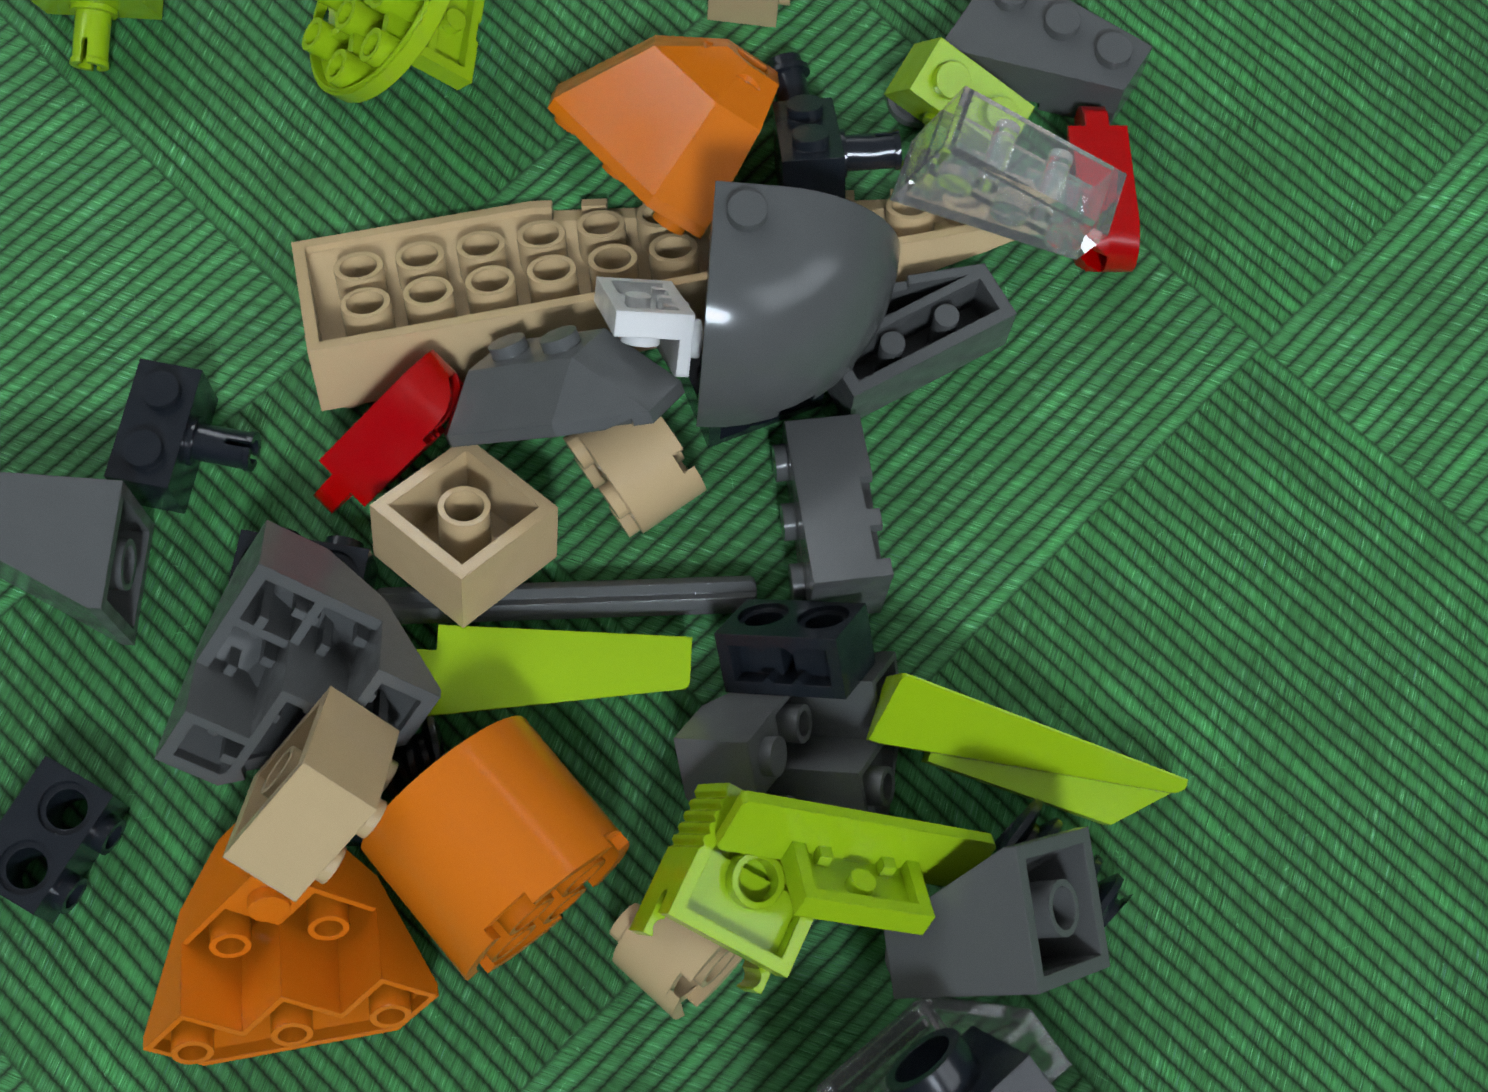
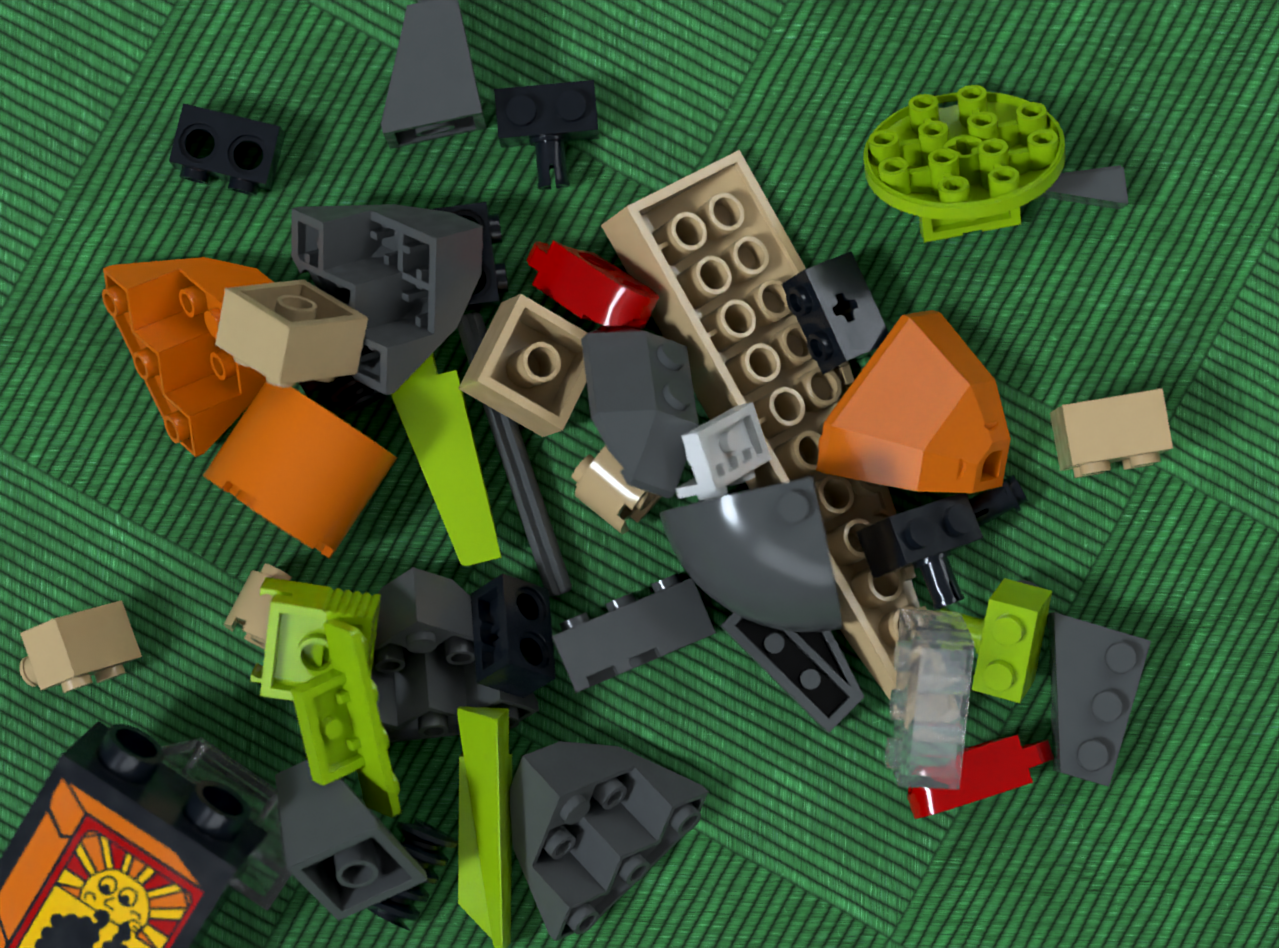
camera: 80 degrees right, 15 degrees up
(520, 183) = (836, 312): none -> black brick
(1053, 631) = (593, 826): none -> dark grey brick

